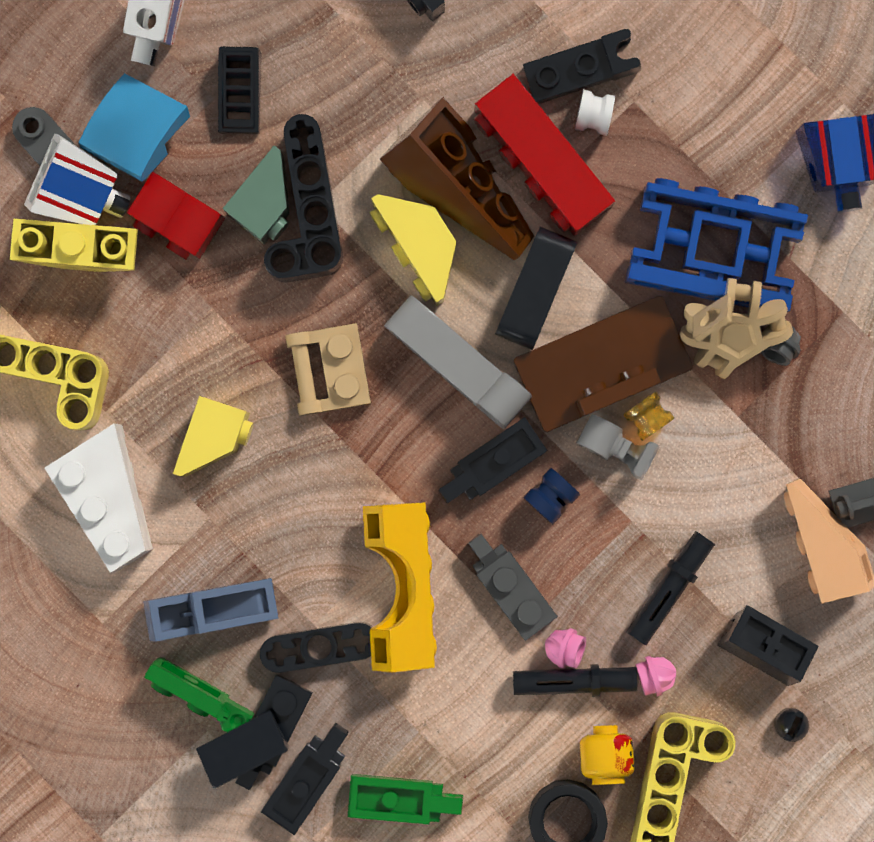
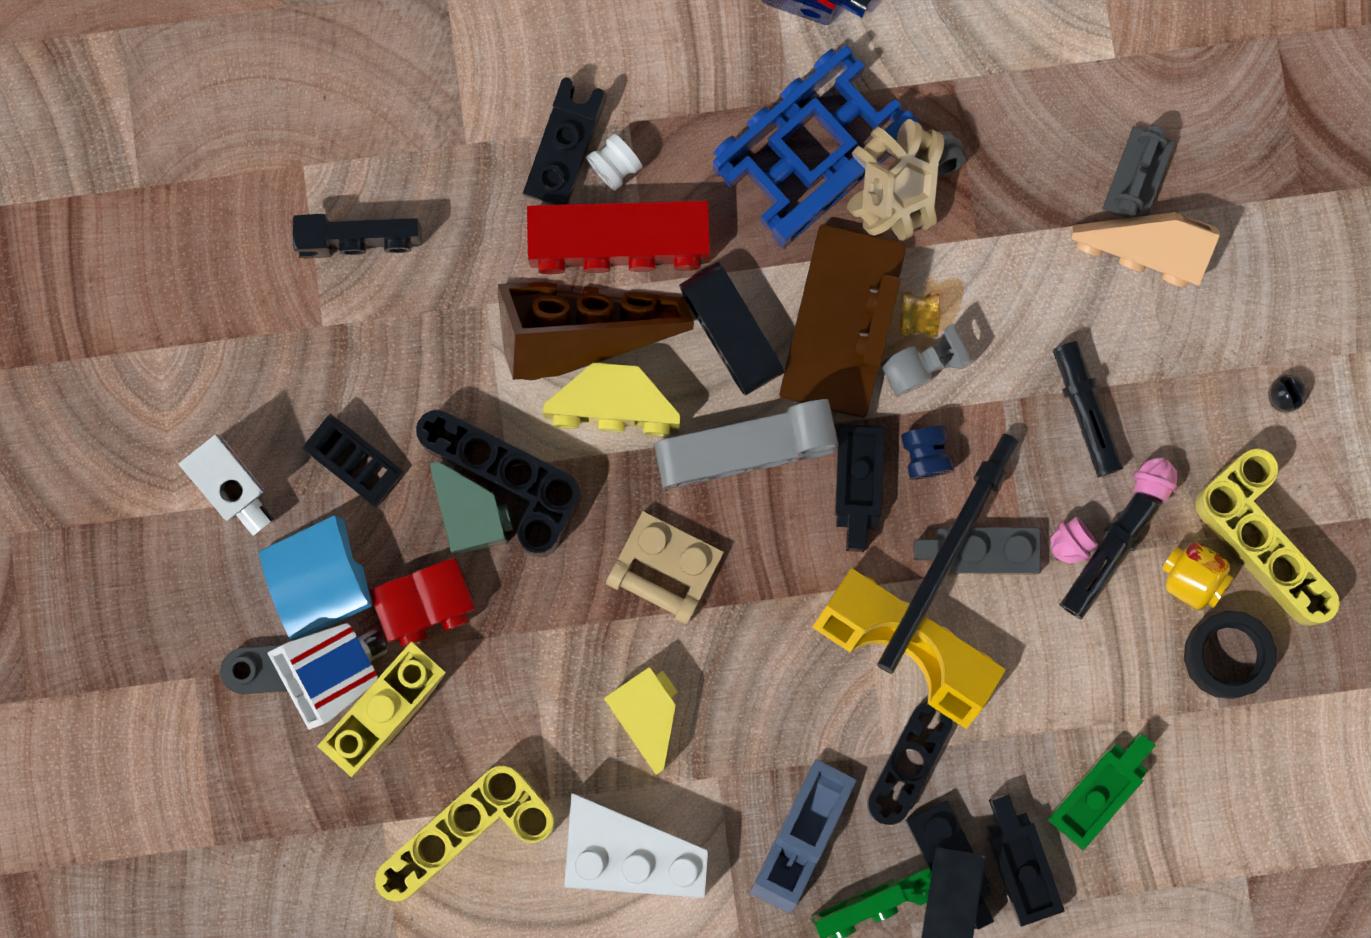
camera: 55 degrees left, 5 degrees down
(565, 554) = (987, 479): none -> black bar
(768, 646) = (1203, 361): black hinge -> none

